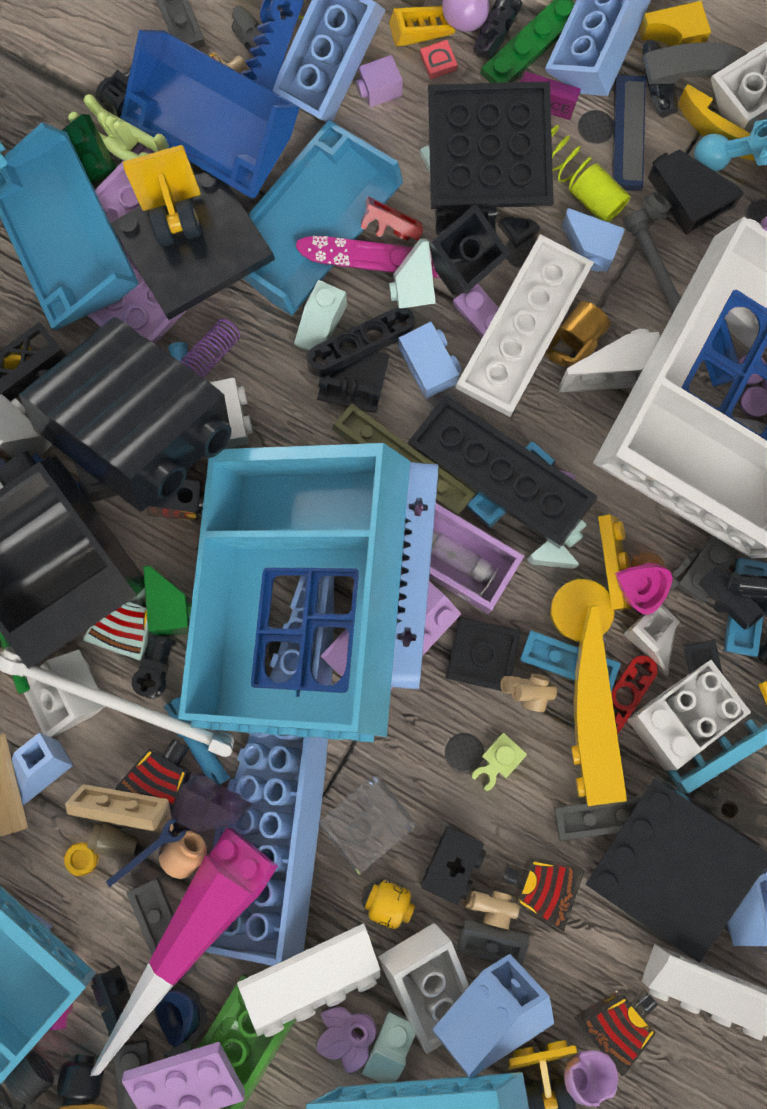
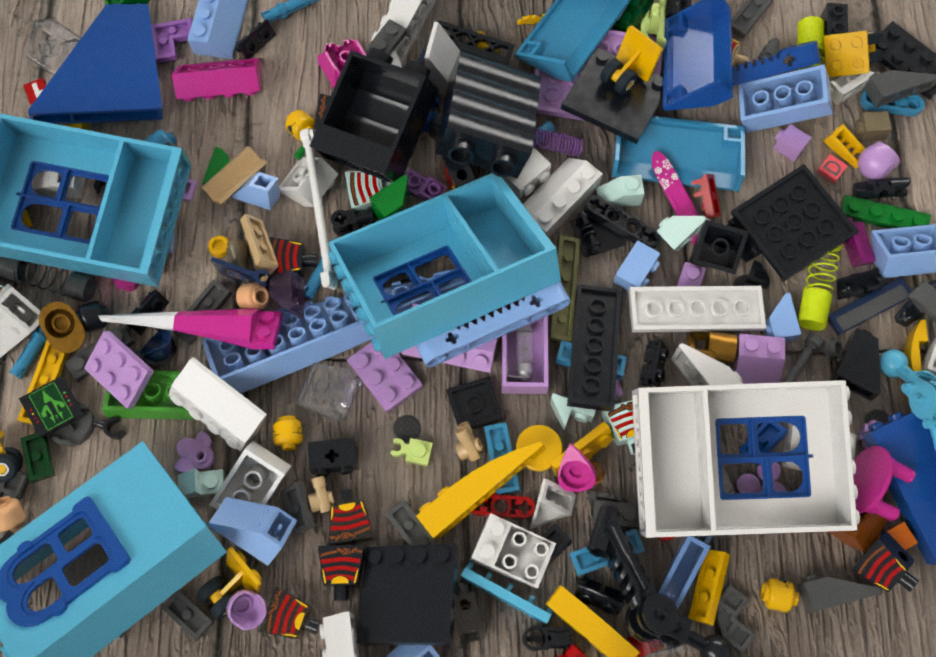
camera: 60 degrees right, 10 degrees down
(12, 278) = (530, 19): none -> yellow piece
(164, 549) = (424, 187): none -> medium lavender slope
(277, 390) = (562, 194): none -> white slope
(401, 750) = (387, 379): none -> lavender plate
(567, 421) = (657, 355): none -> black hinge
(596, 930) = (341, 567): none -> torso
(597, 133) = (859, 284): none -> black hinge
(613, 495) = (621, 424): none -> torso
(626, 294) = (759, 358): none -> lavender slope

